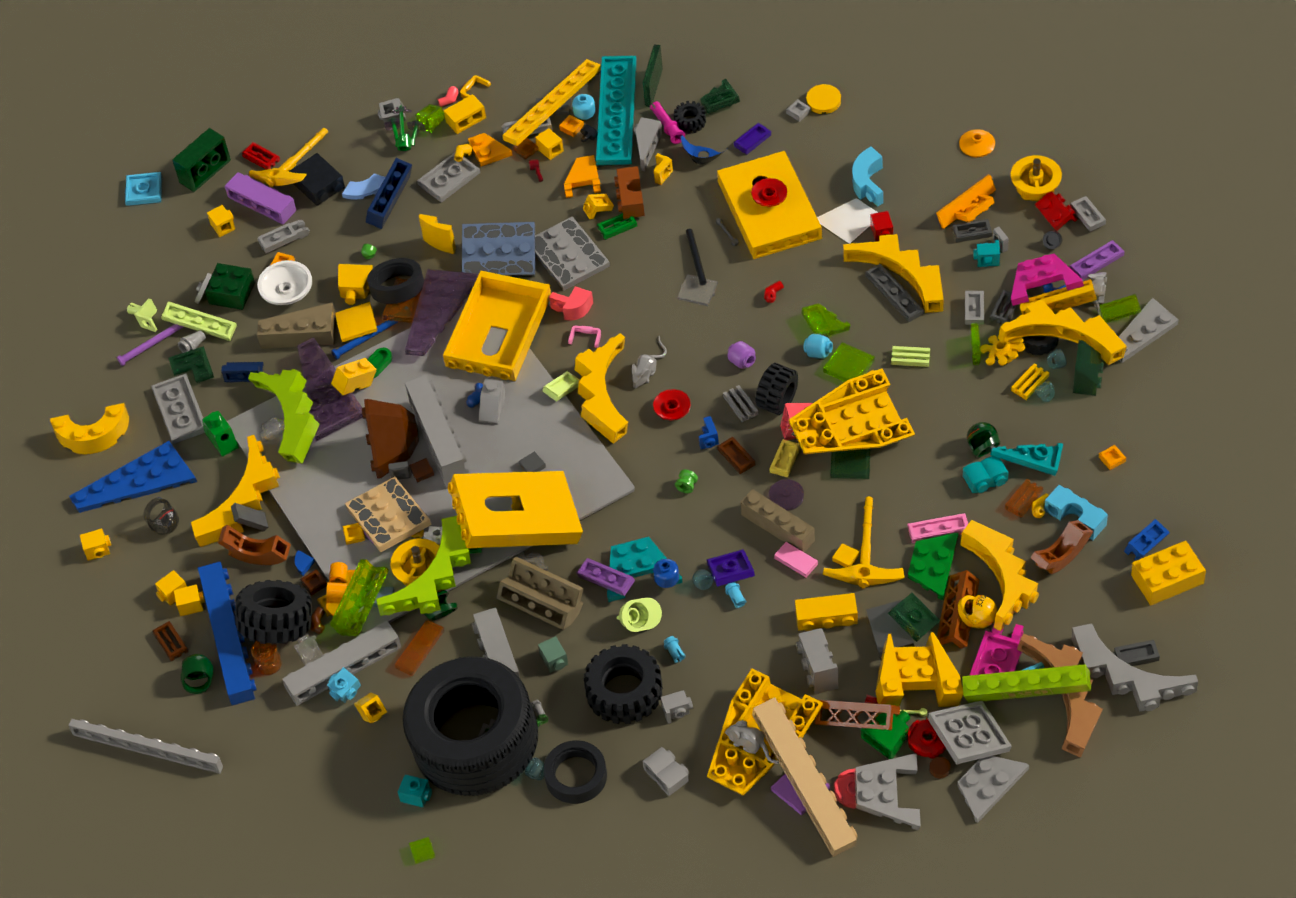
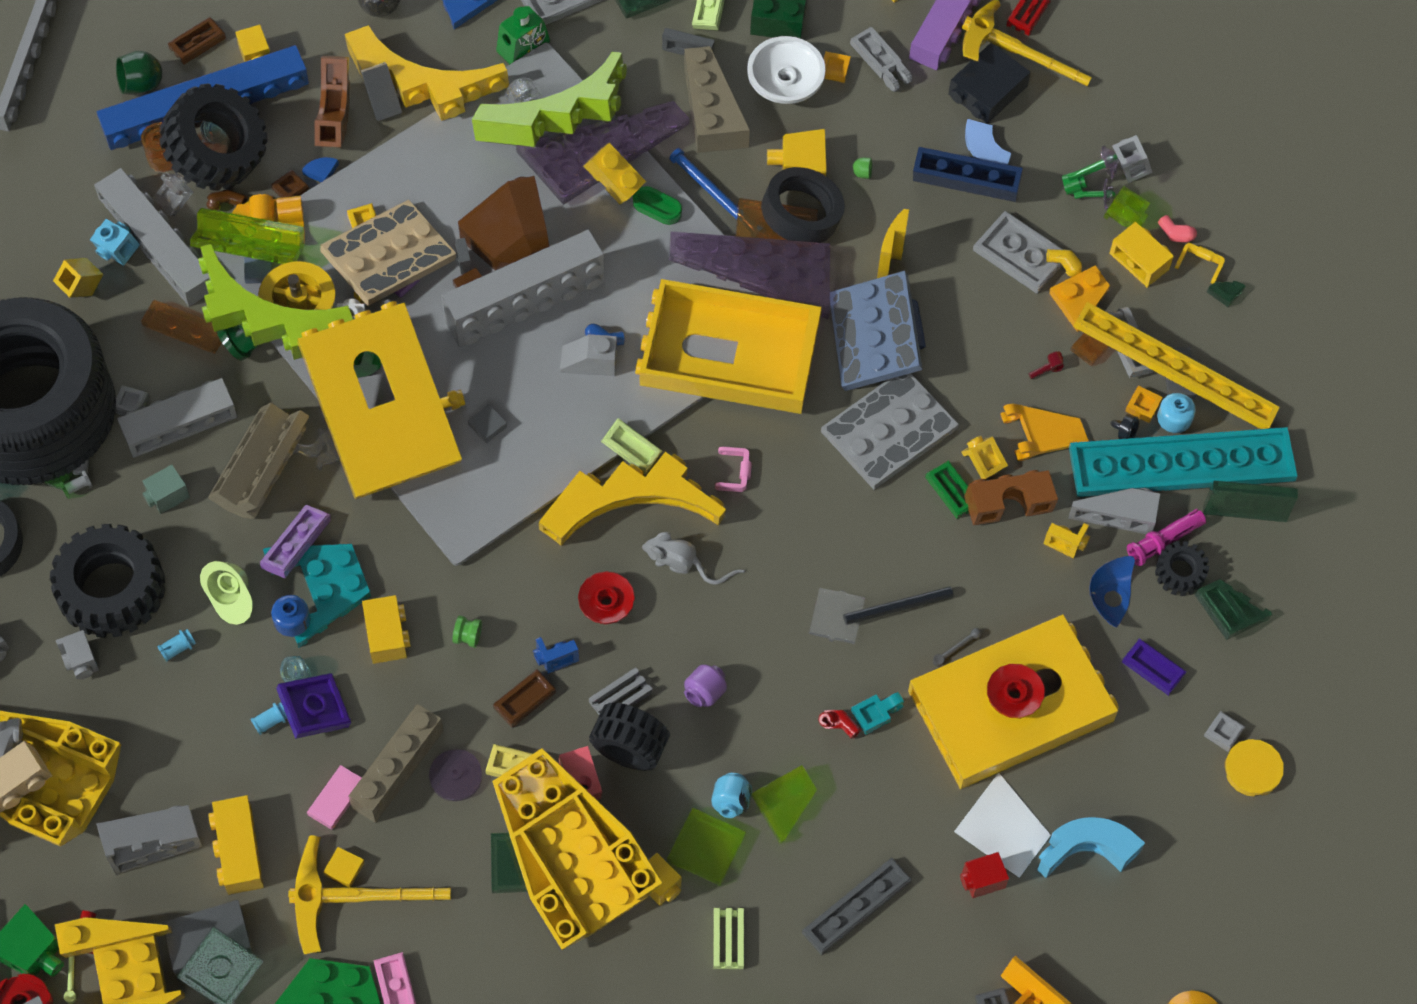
camera: 75 degrees right, 10 degrees up
(167, 585) = (275, 25): yellow brick -> none
(240, 371) = (639, 50): dark blue panel -> none
(247, 340) = (677, 41): none -> dark grey tile
(356, 321) = (731, 170): yellow slope -> none
(498, 78) = (1226, 291): none -> clear green tile
(549, 144) = (1097, 375): yellow brick -> none
(575, 305) = (783, 447): coral brick -> none
(678, 527) = (384, 629): none -> yellow brick
(768, 272) = (875, 713): none -> teal plate
(858, 708) = (53, 895): dark orange fence -> none
(923, 279) = (877, 951): yellow arch -> none

